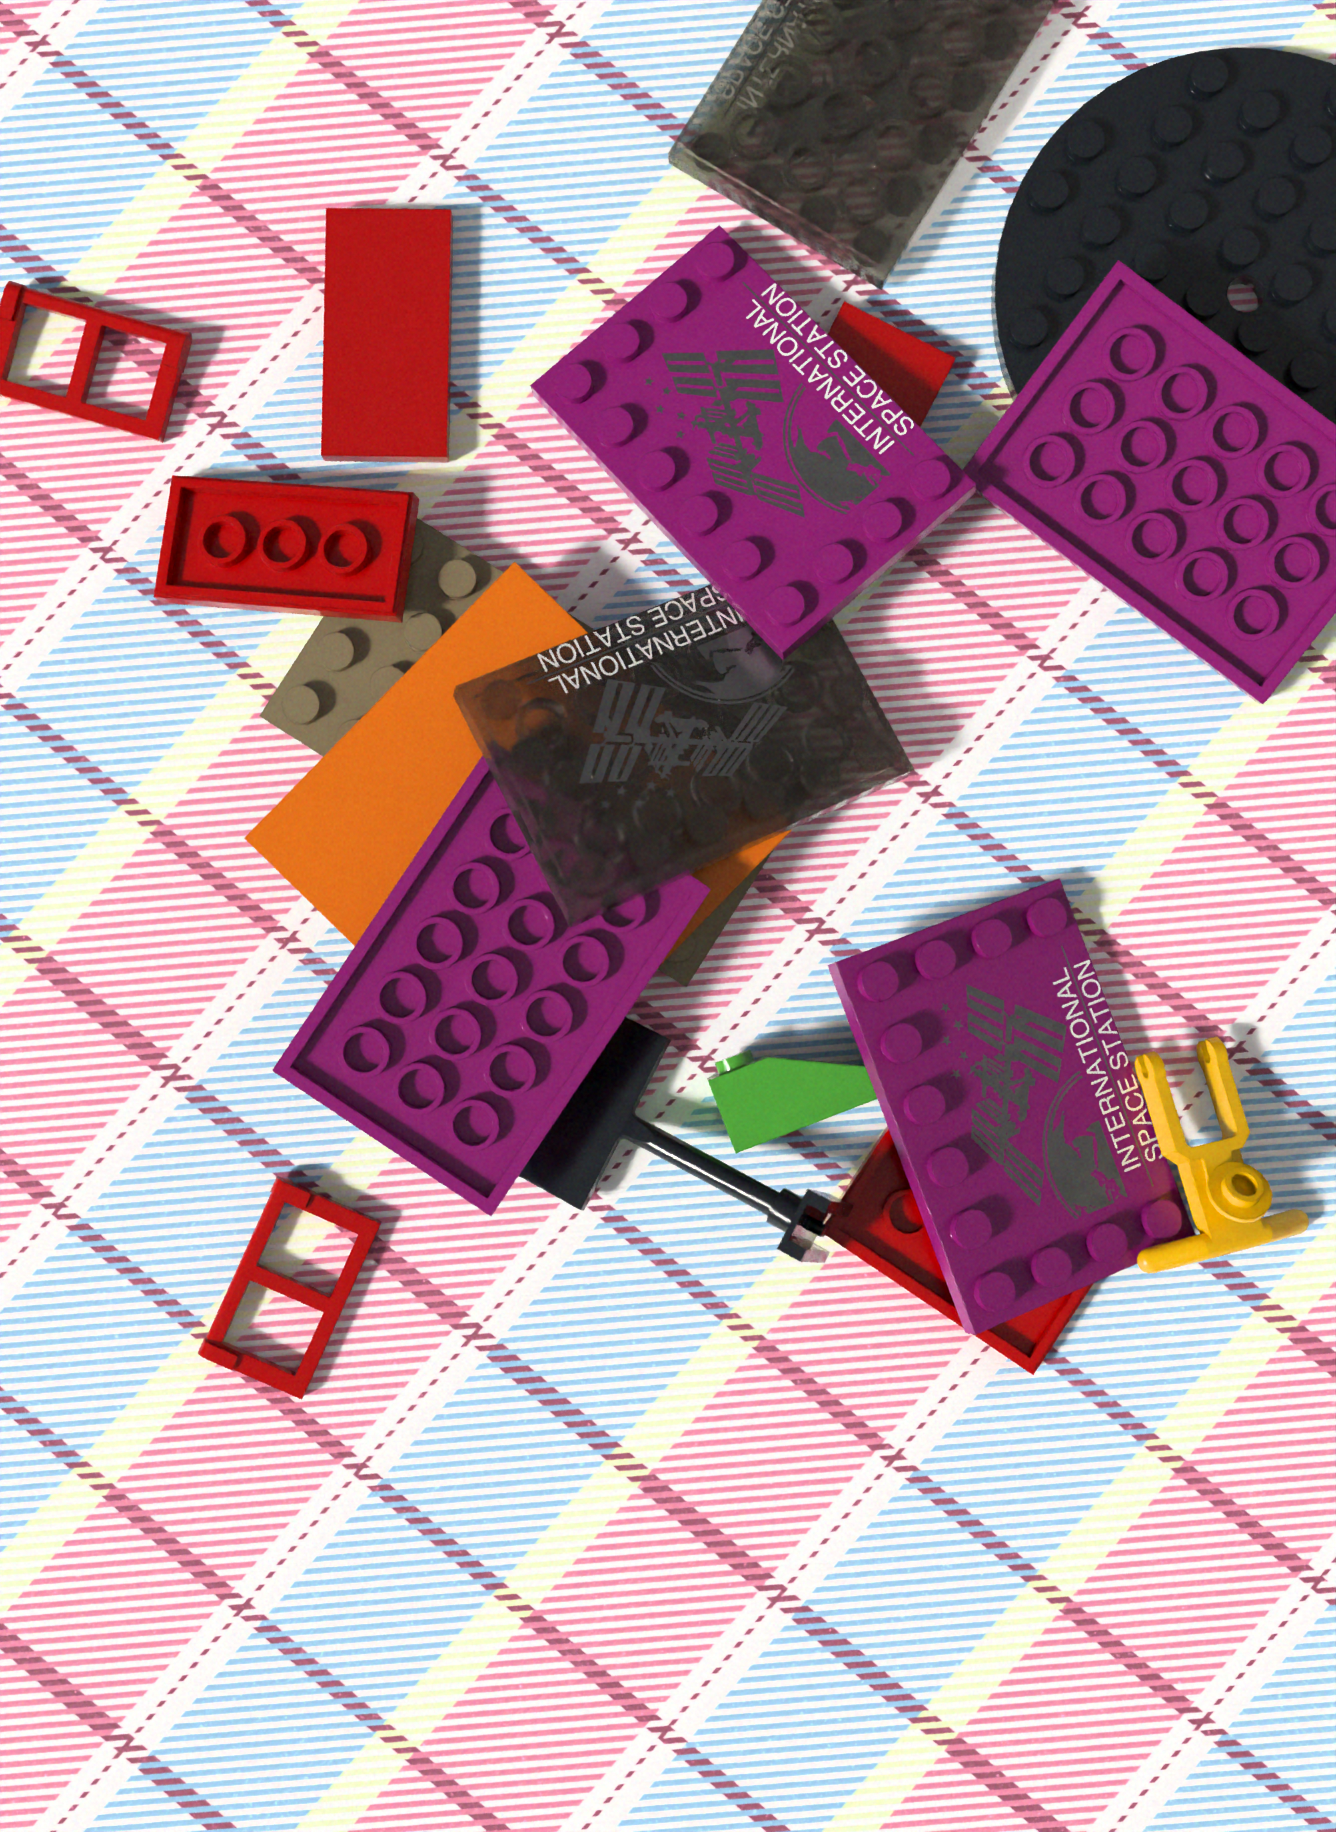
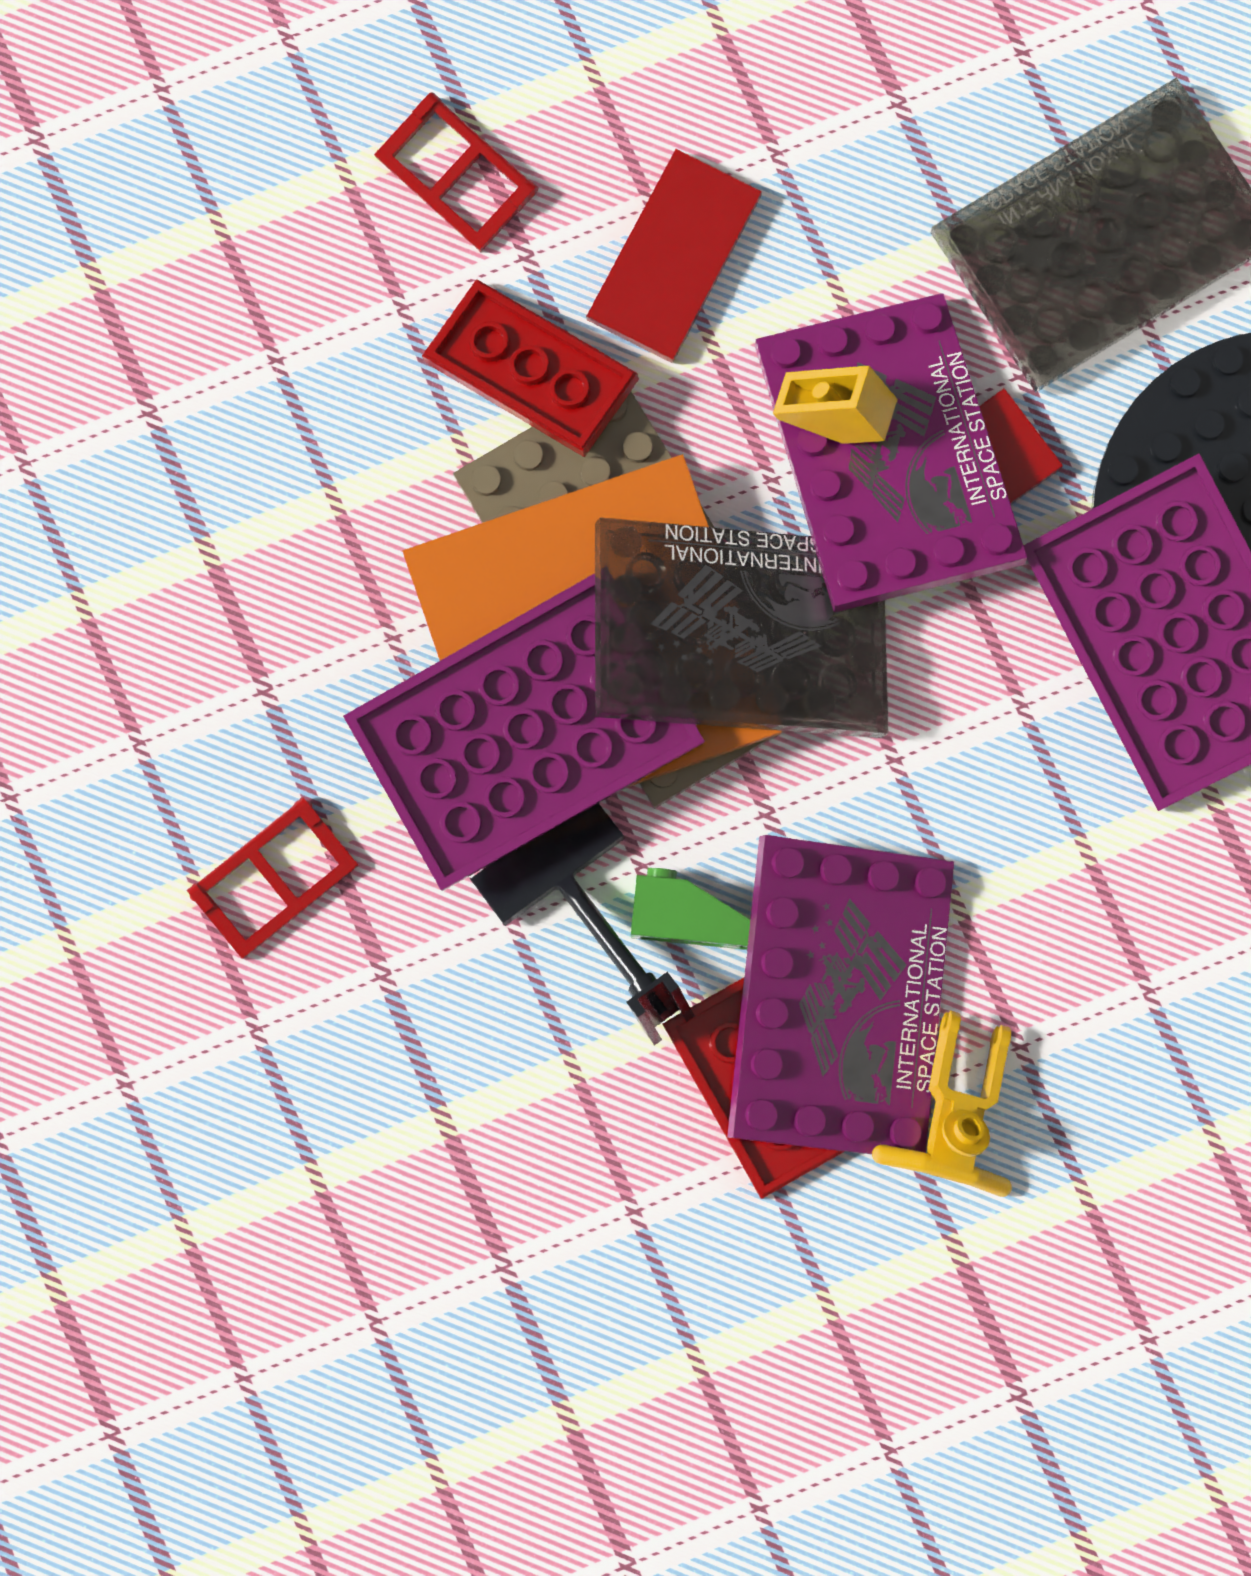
camera: 25 degrees right, 5 degrees down
(666, 411) = (837, 403): none -> yellow slope

